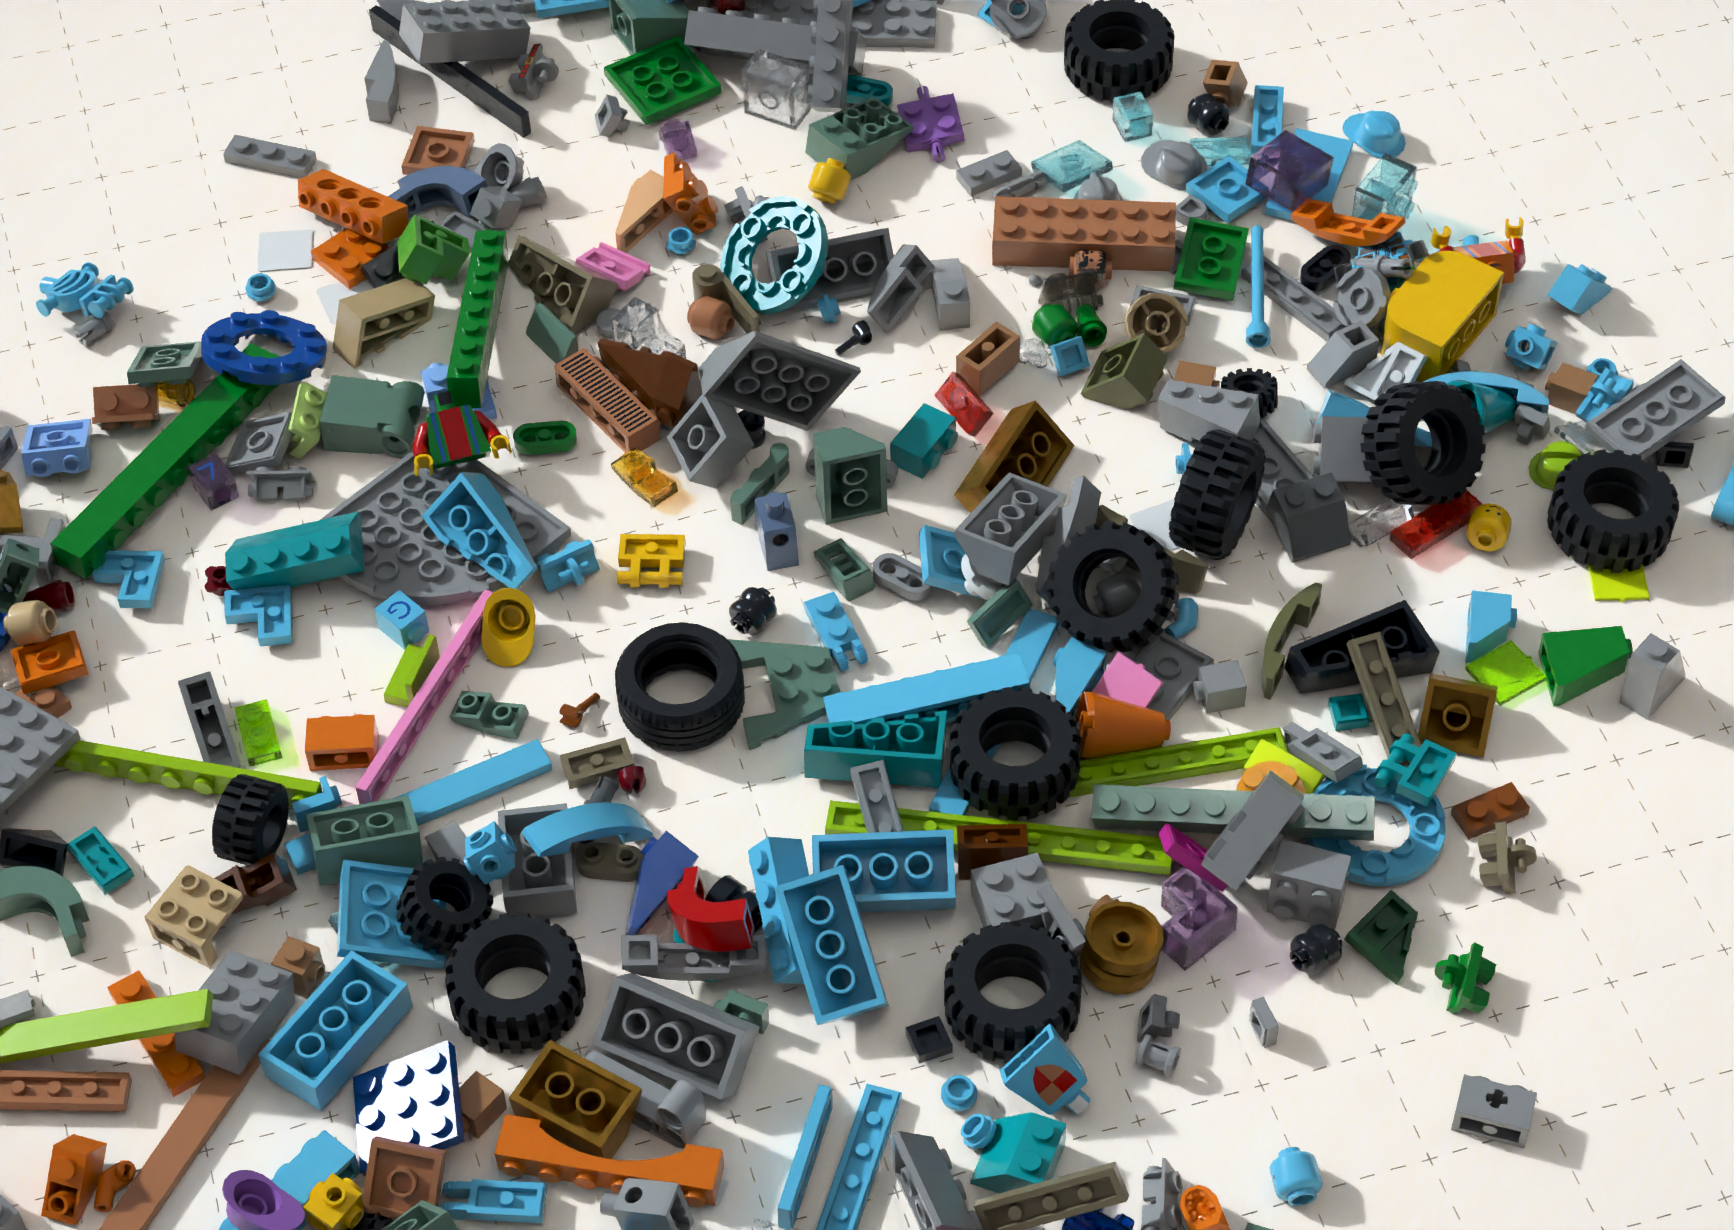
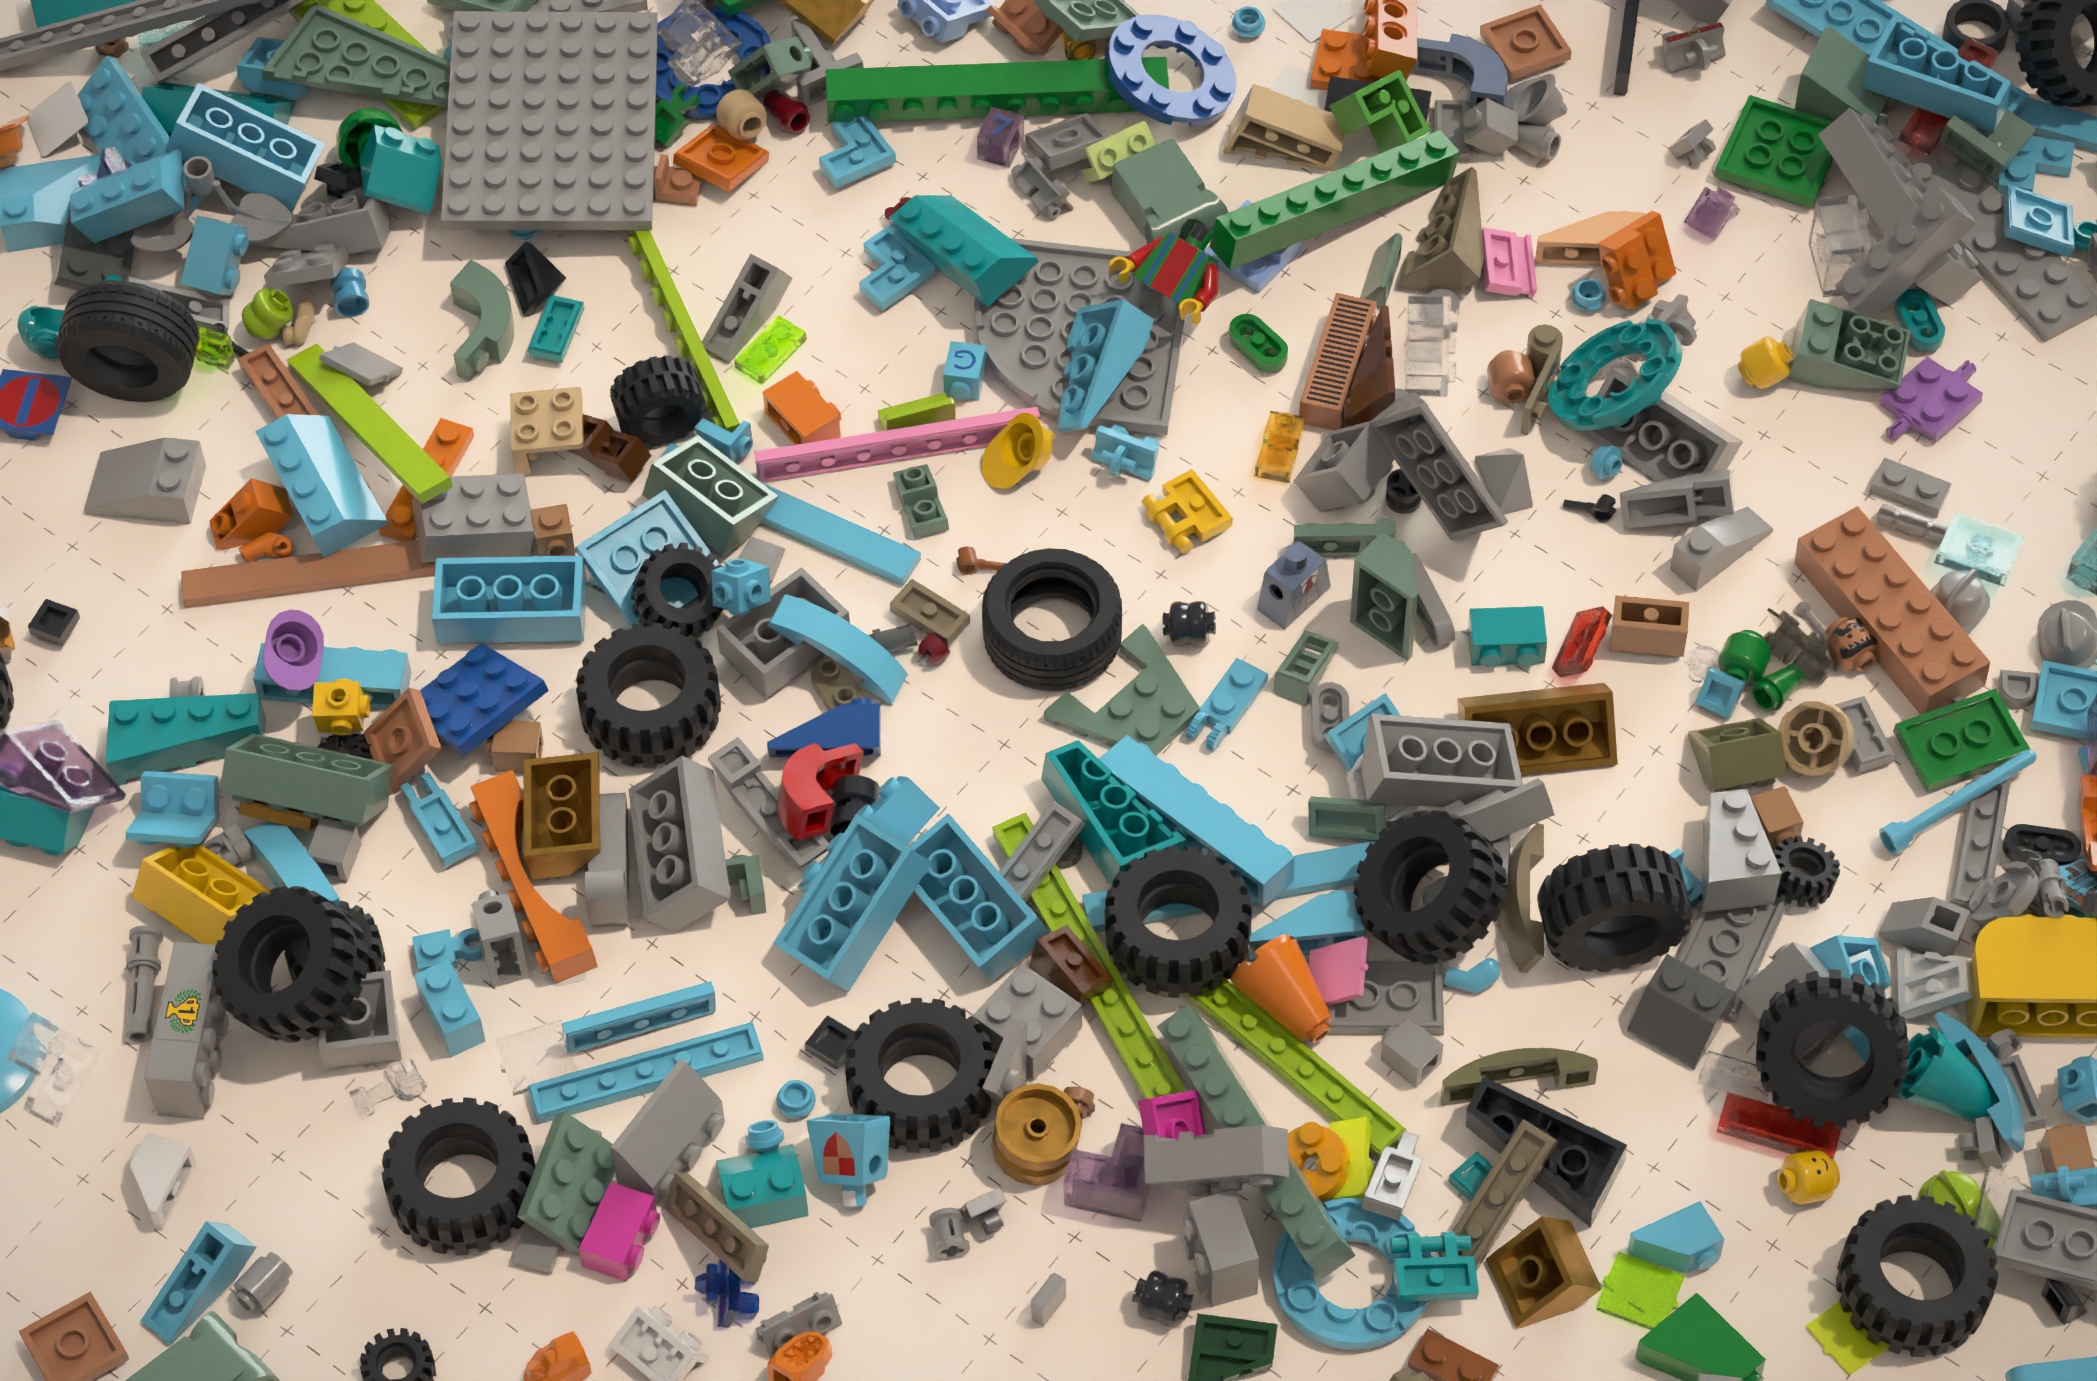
camera: 55 degrees right, 5 degrees up
(95, 1102) = (321, 480): none -> medium azure slope

